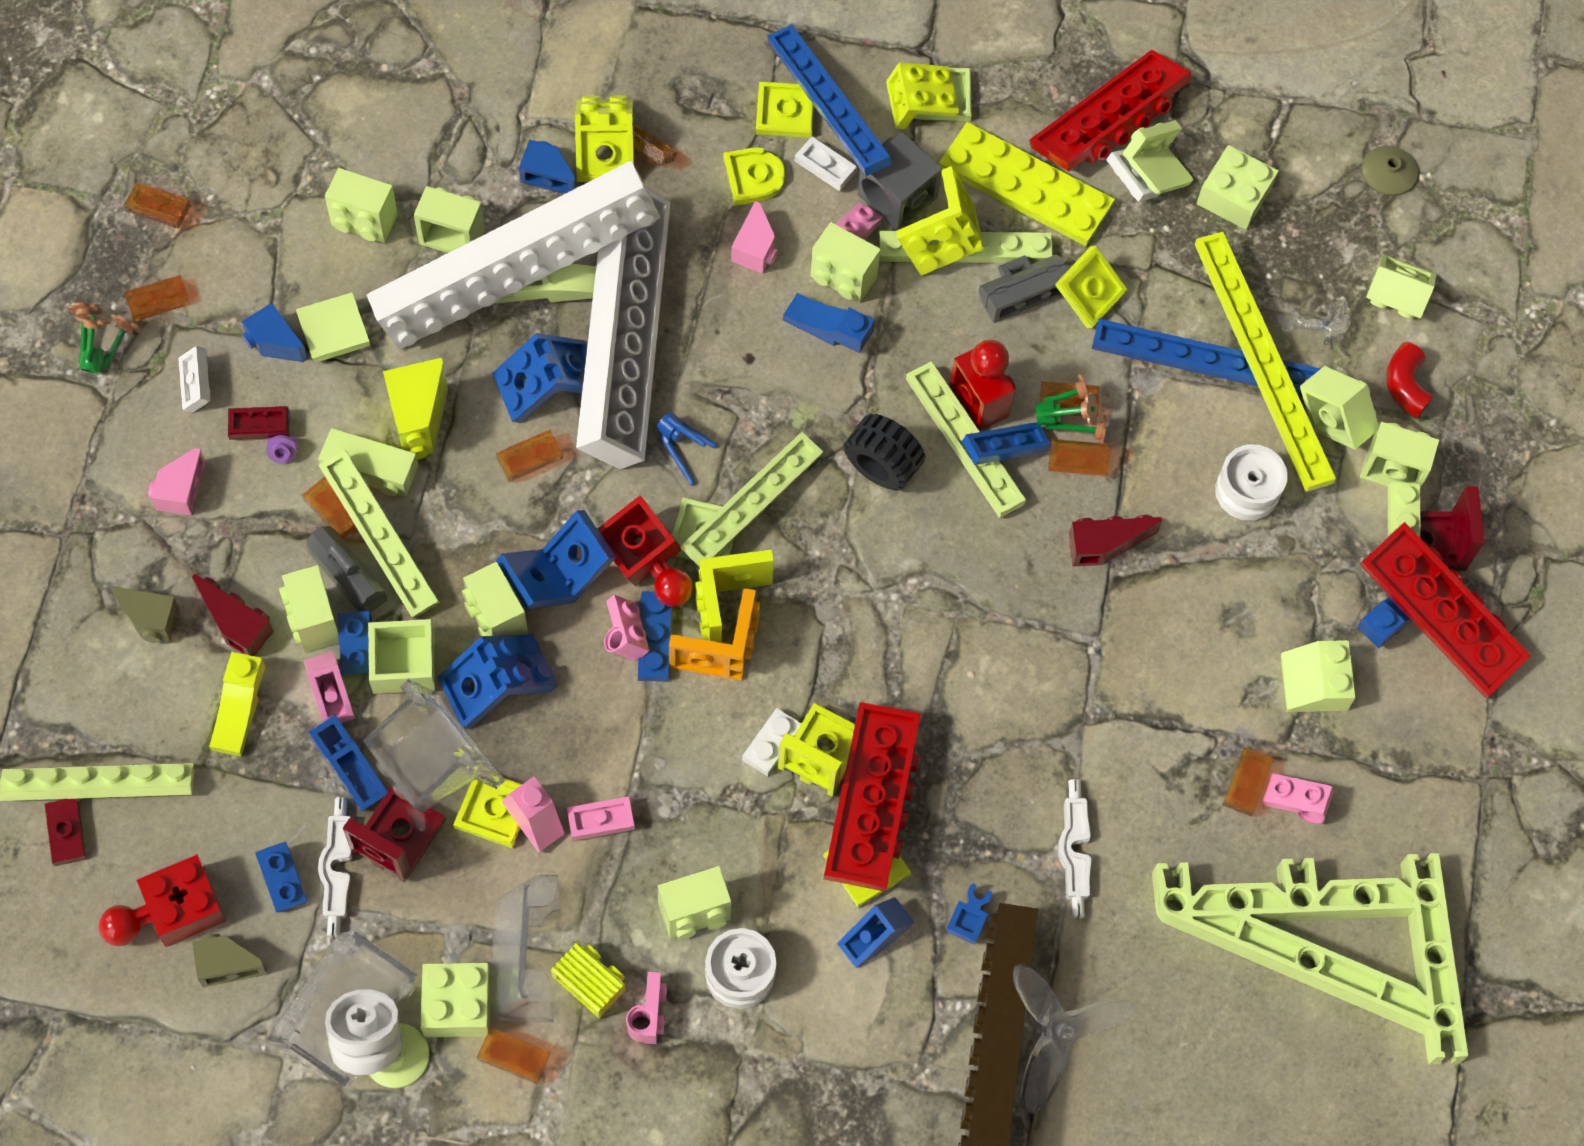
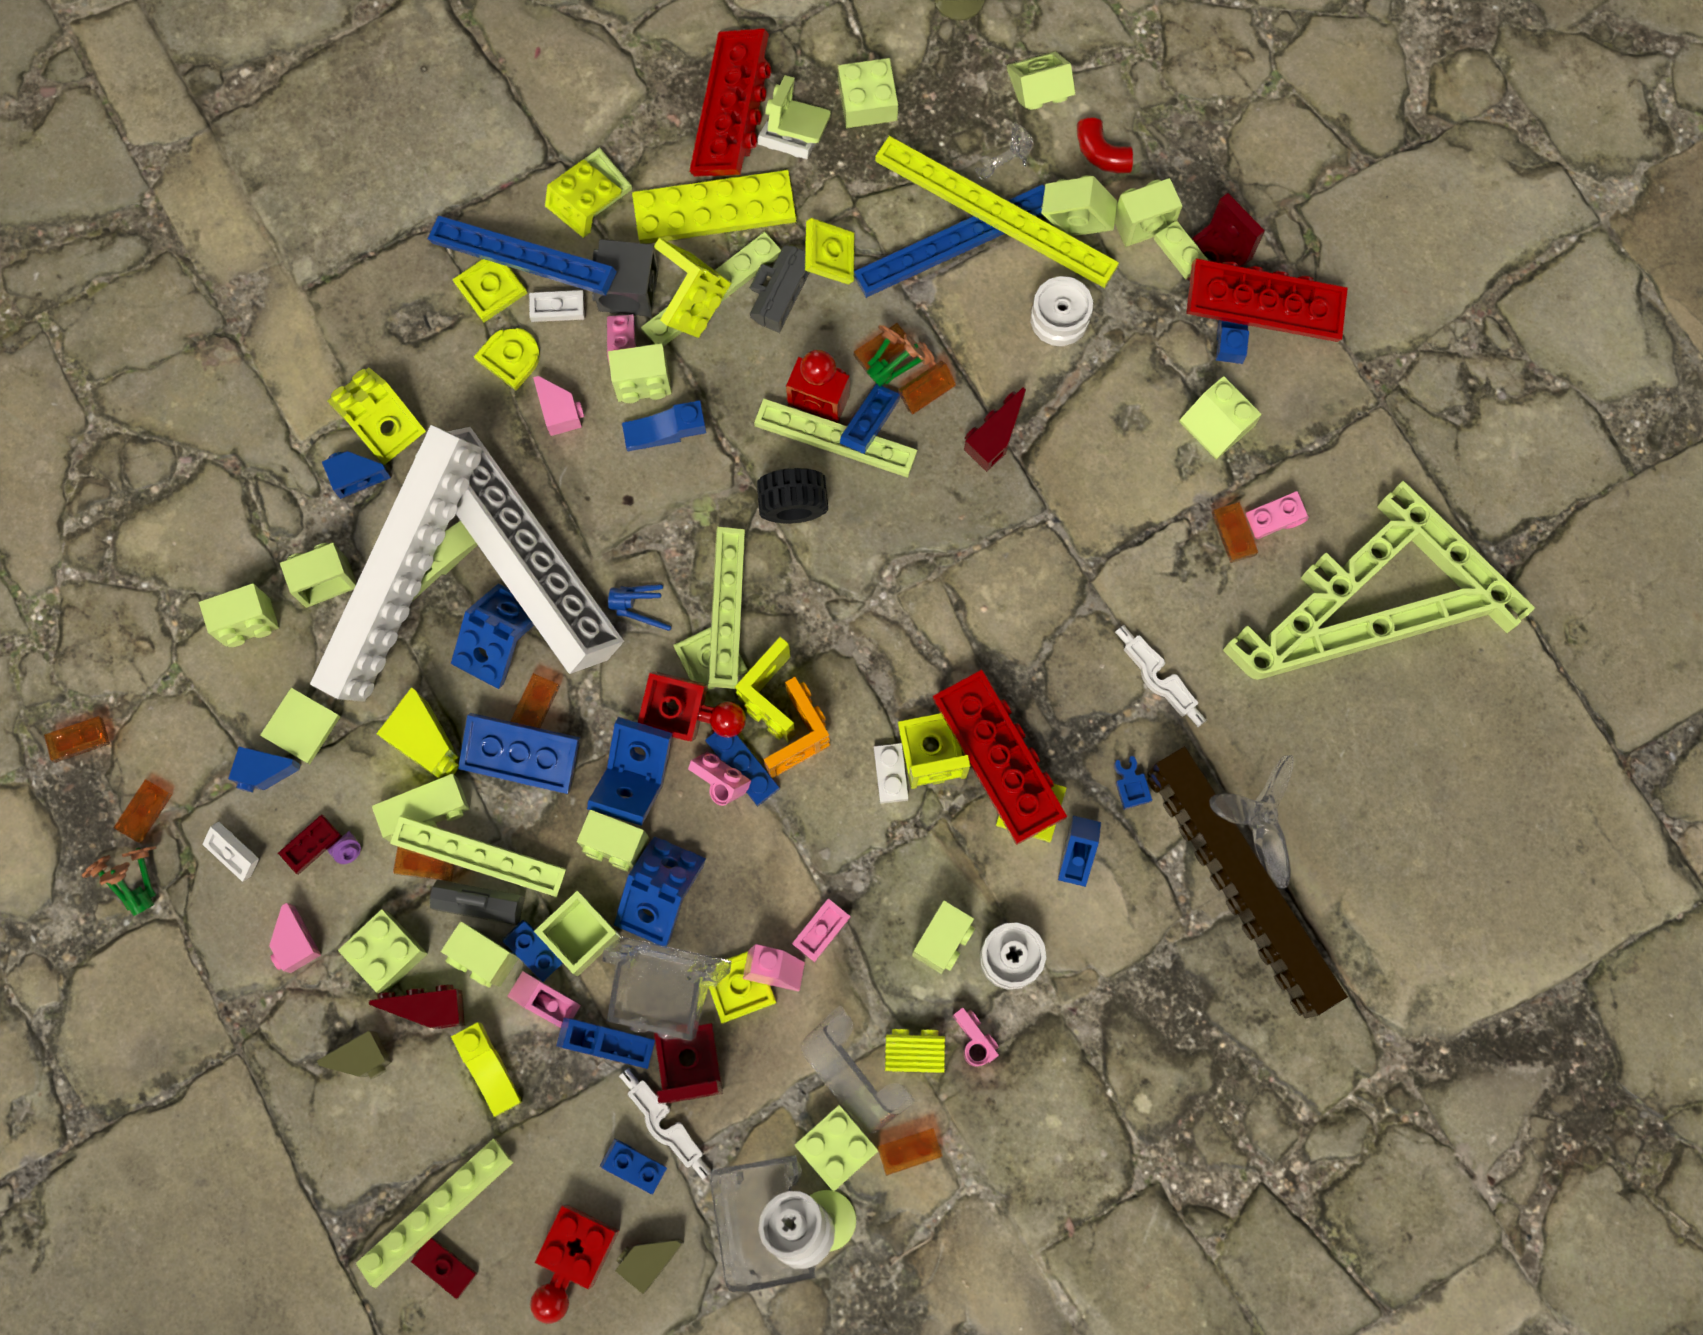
camera: 35 degrees left, 10 degrees up
(239, 548) = (382, 952): none -> yellowish green piece
(482, 481) = (518, 753): none -> blue plate
(654, 149) = (418, 394): clear orange plate -> none

